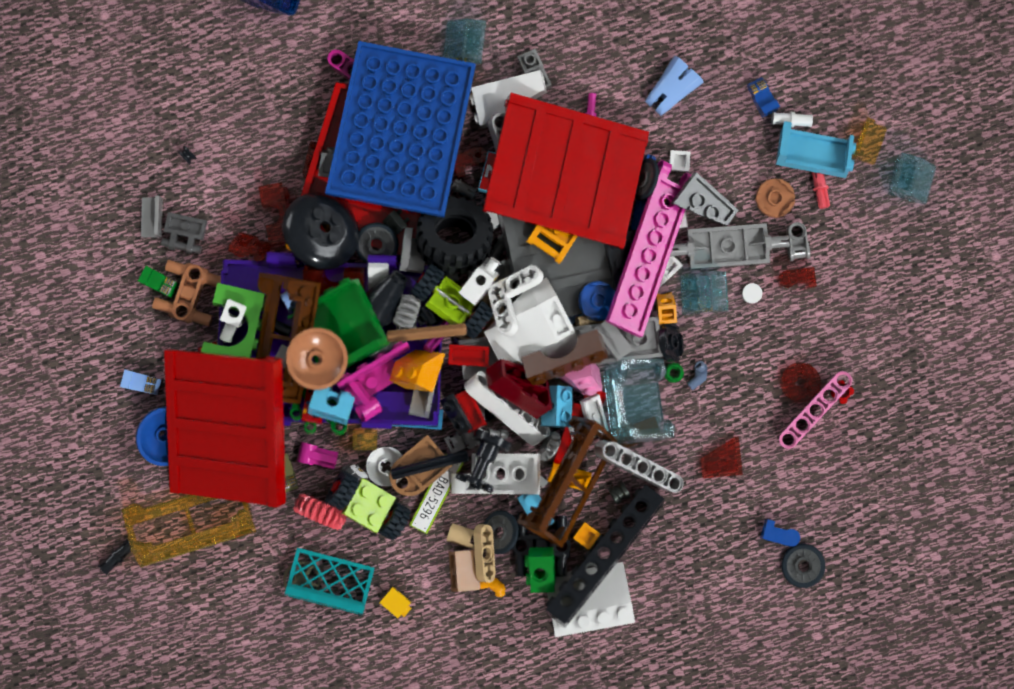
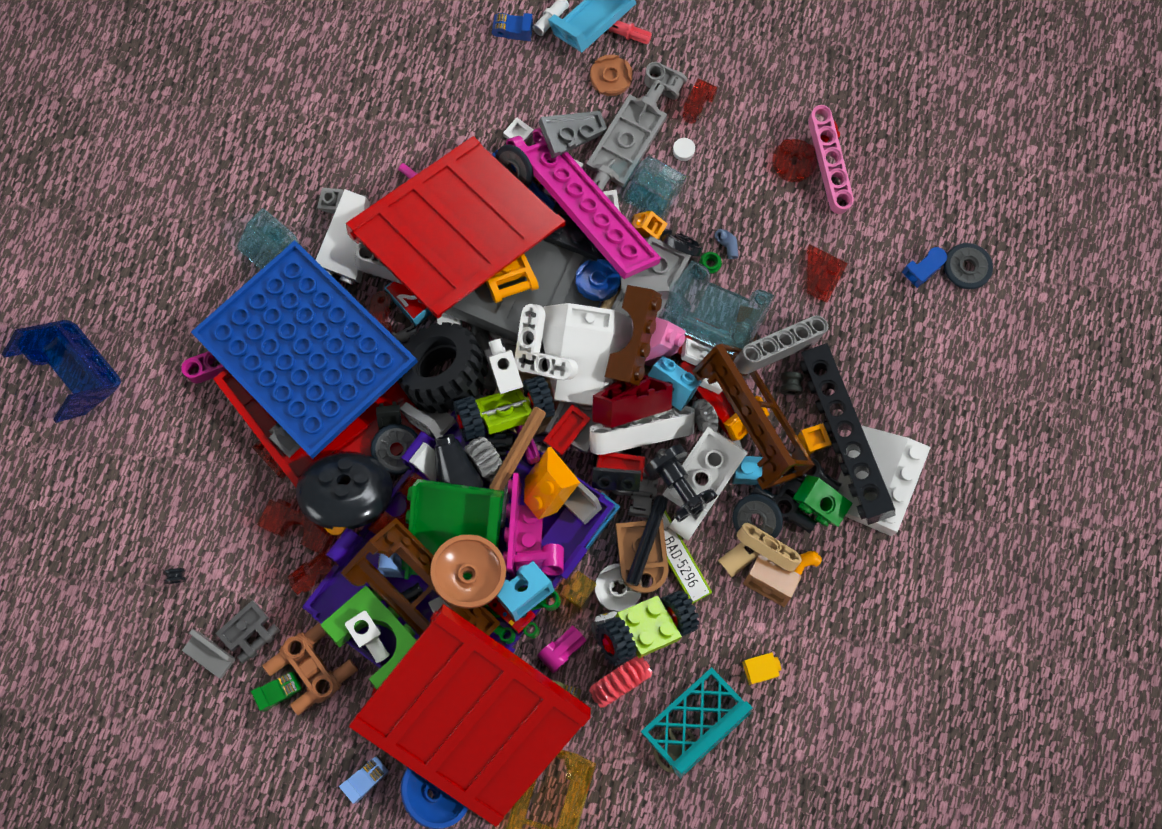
camera: 55 degrees left, 10 degrees down
(673, 85) = (446, 91): light blue piece -> none

